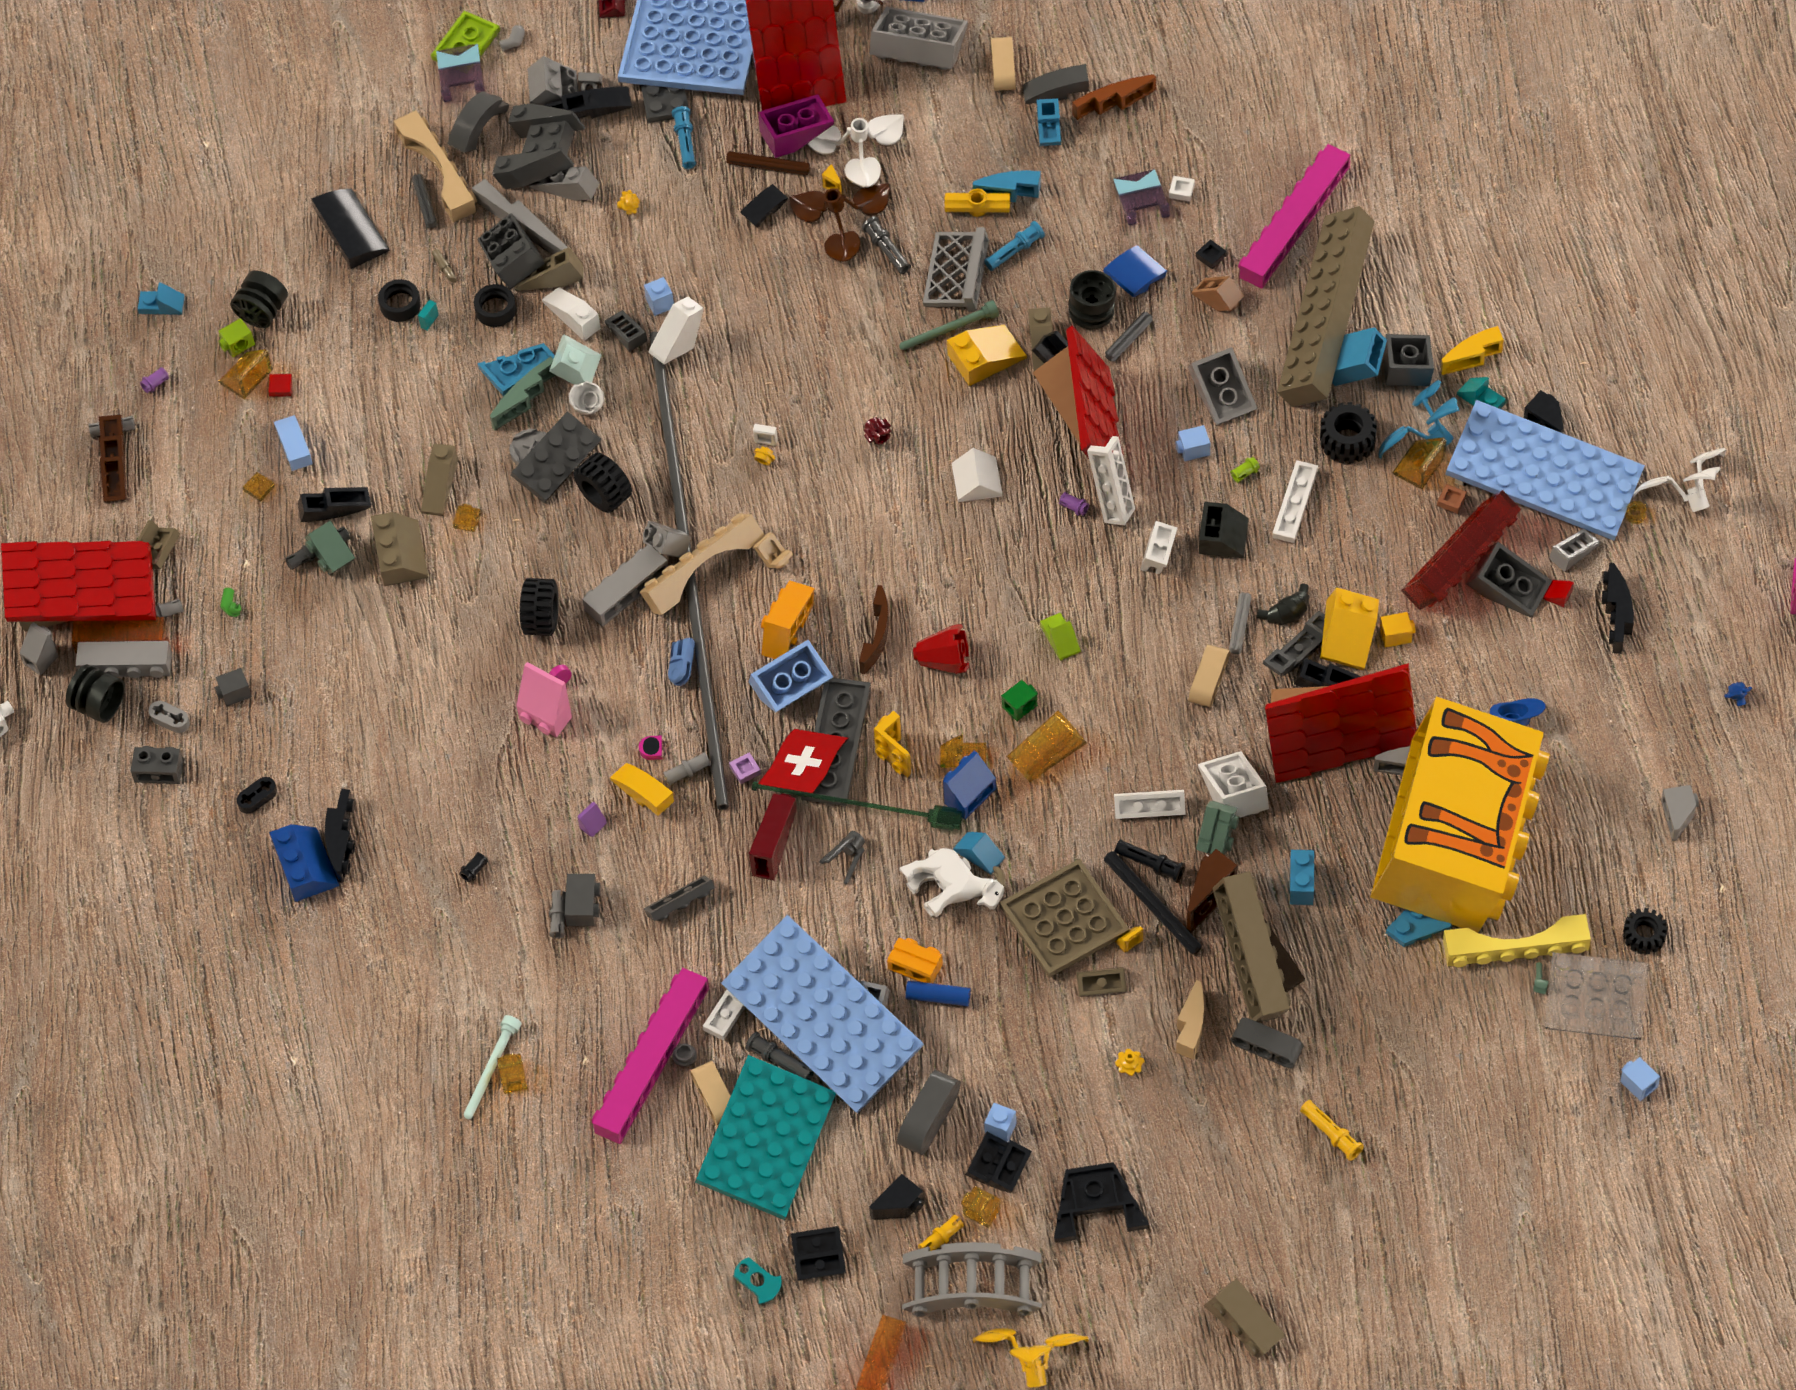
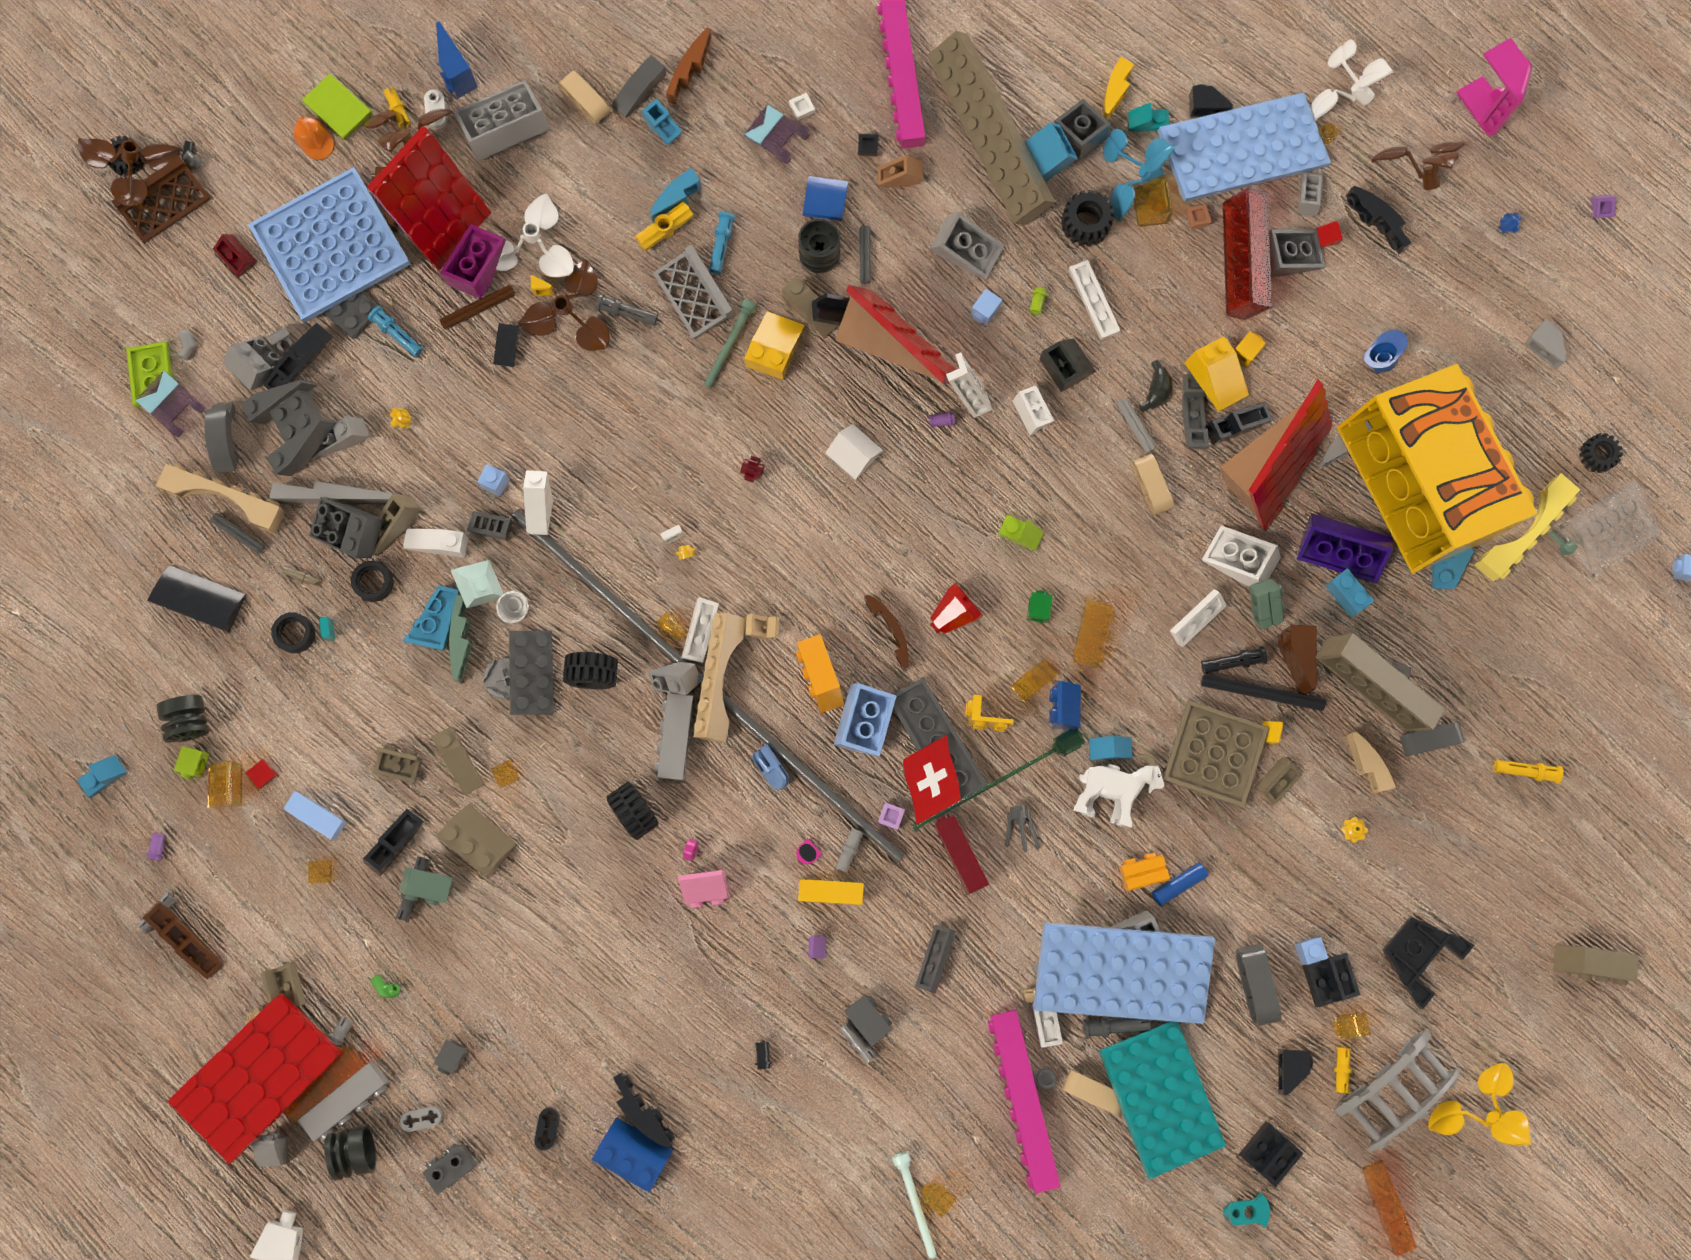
camera: 45 degrees left, 20 degrees up
(390, 449) = (397, 765): none -> dark tan bracket
(700, 501) = (671, 626): none -> clear yellow cone
(721, 517) = (699, 630): none -> white plate
(1337, 844) = (1344, 546): none -> dark purple slope
(1696, 603) = (1444, 157): none -> reddish brown plant

